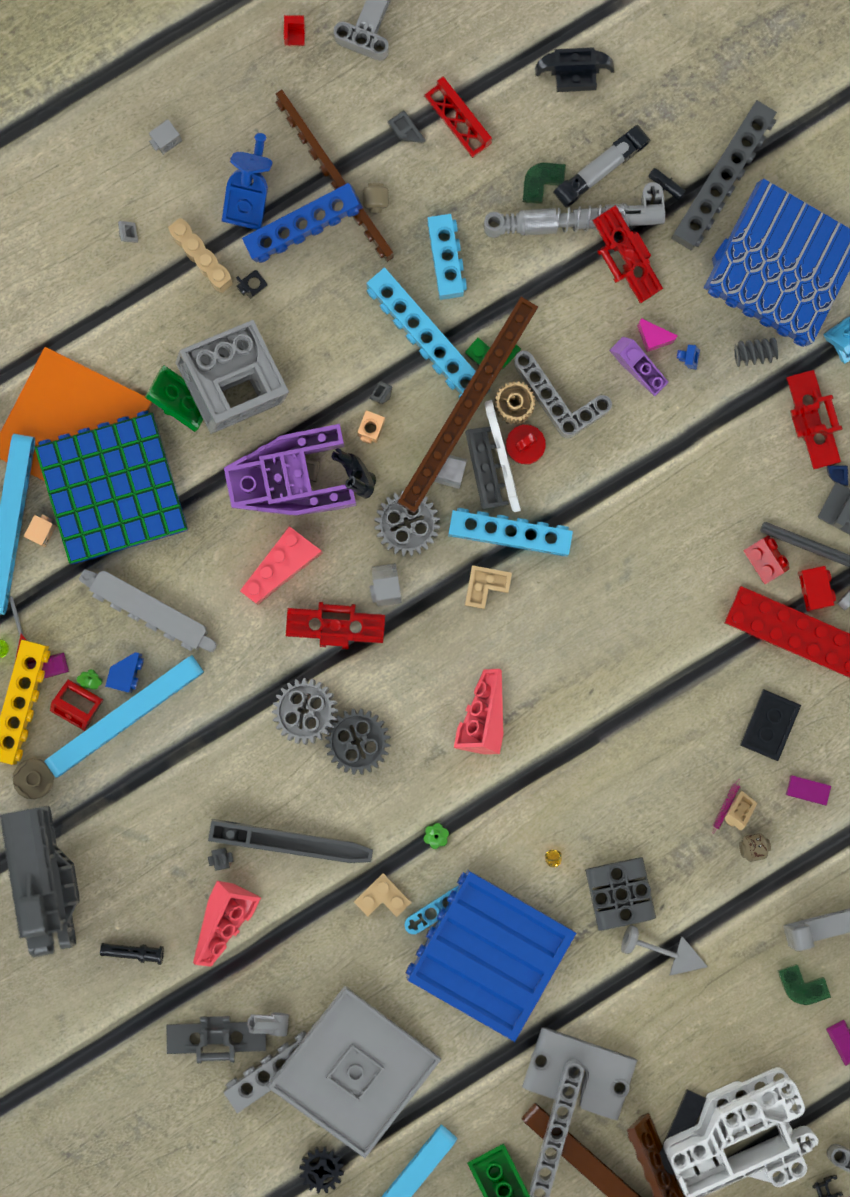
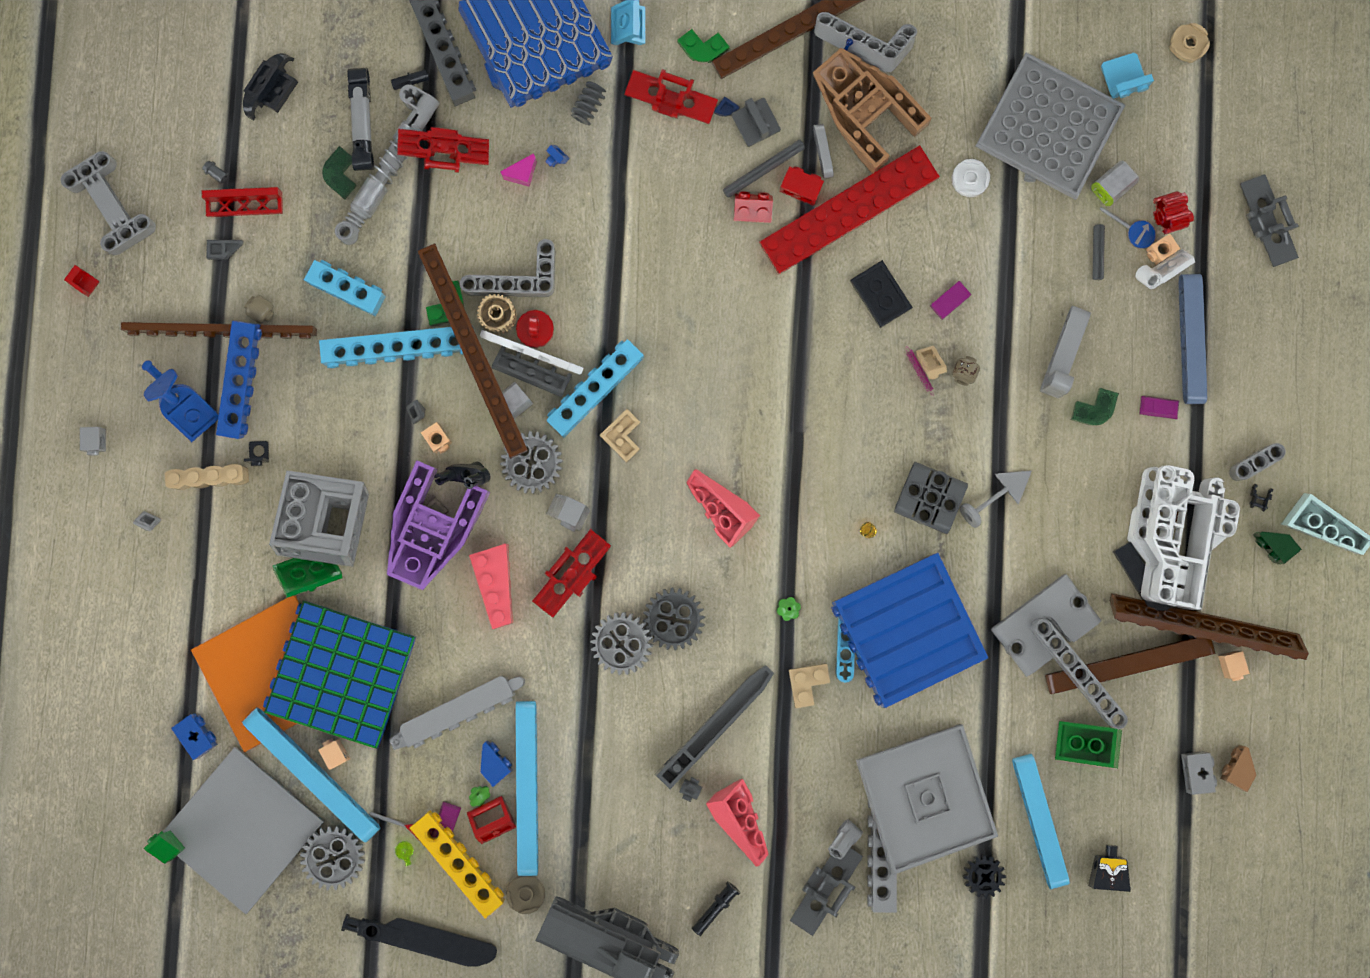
camera: 55 degrees left, 0 degrees up
(467, 75) = (214, 171): none -> dark grey pin
(638, 365) = (535, 199): medium lavender slope -> none

